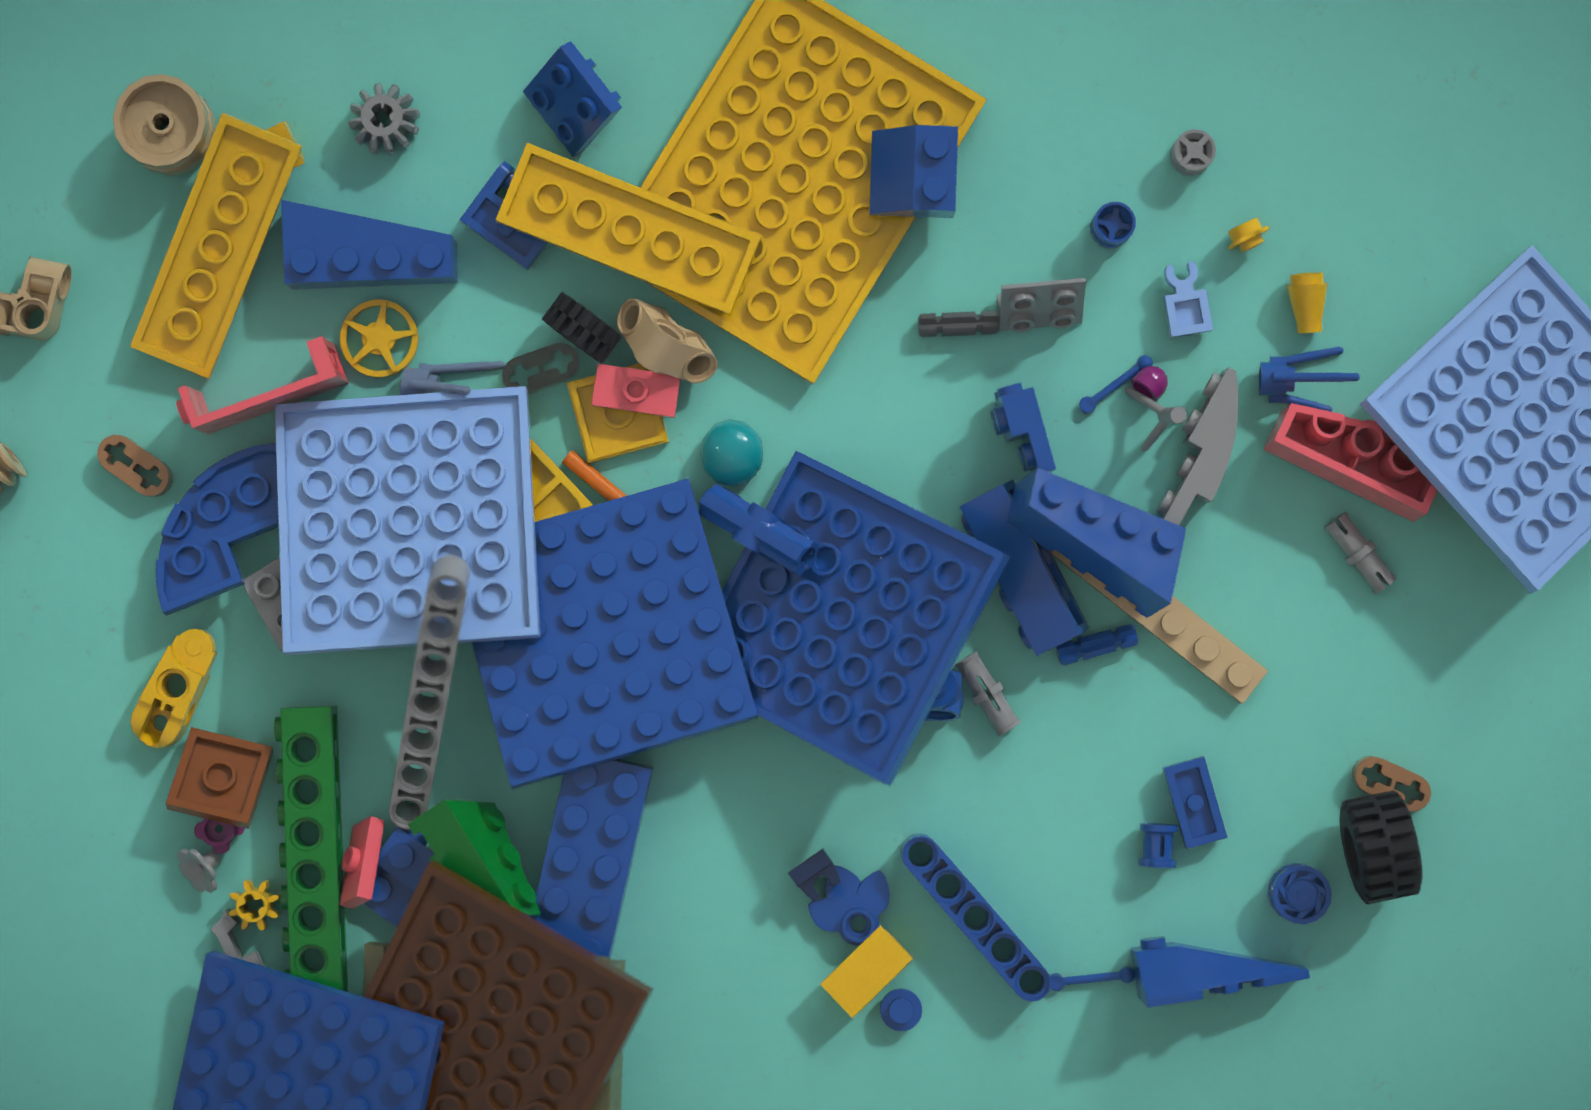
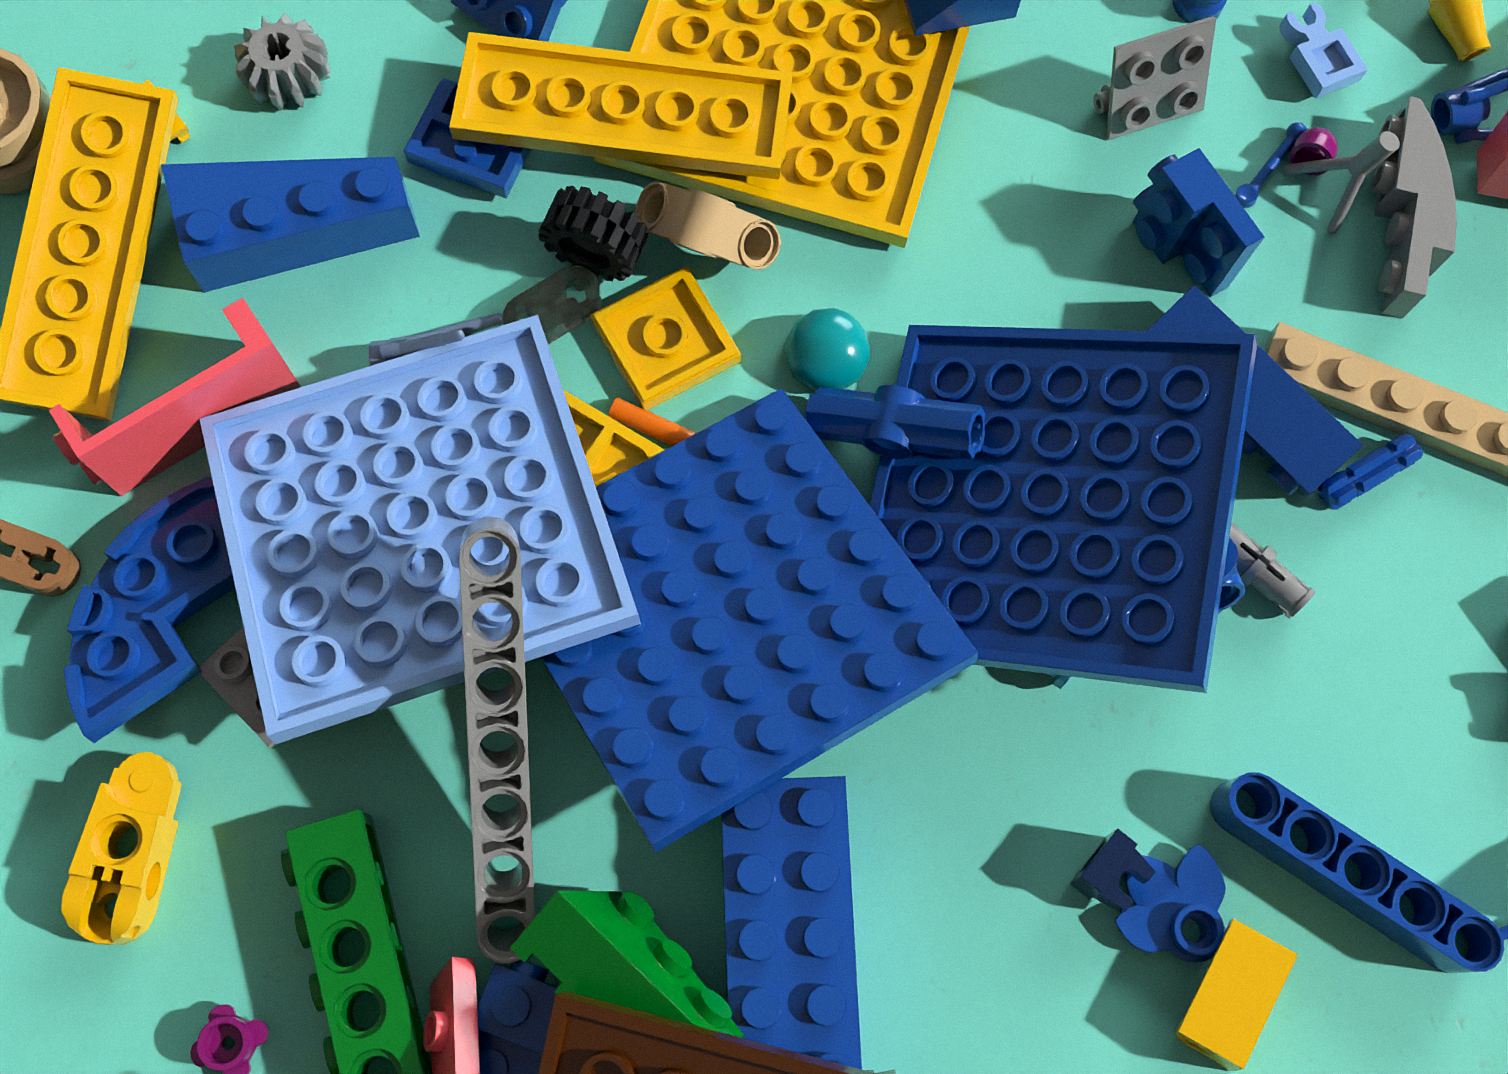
camera: 20 degrees left, 15 degrees down
(219, 778) = (212, 963): dark orange plate -> none
(379, 338) = (329, 321): yellow wheel -> none
(635, 390) = (683, 297): coral plate -> none
(901, 1009) = (1296, 1040): blue plate -> none
(958, 323) = (1059, 138): dark grey axle -> none
(1102, 536) = (1345, 315): blue wedge -> none

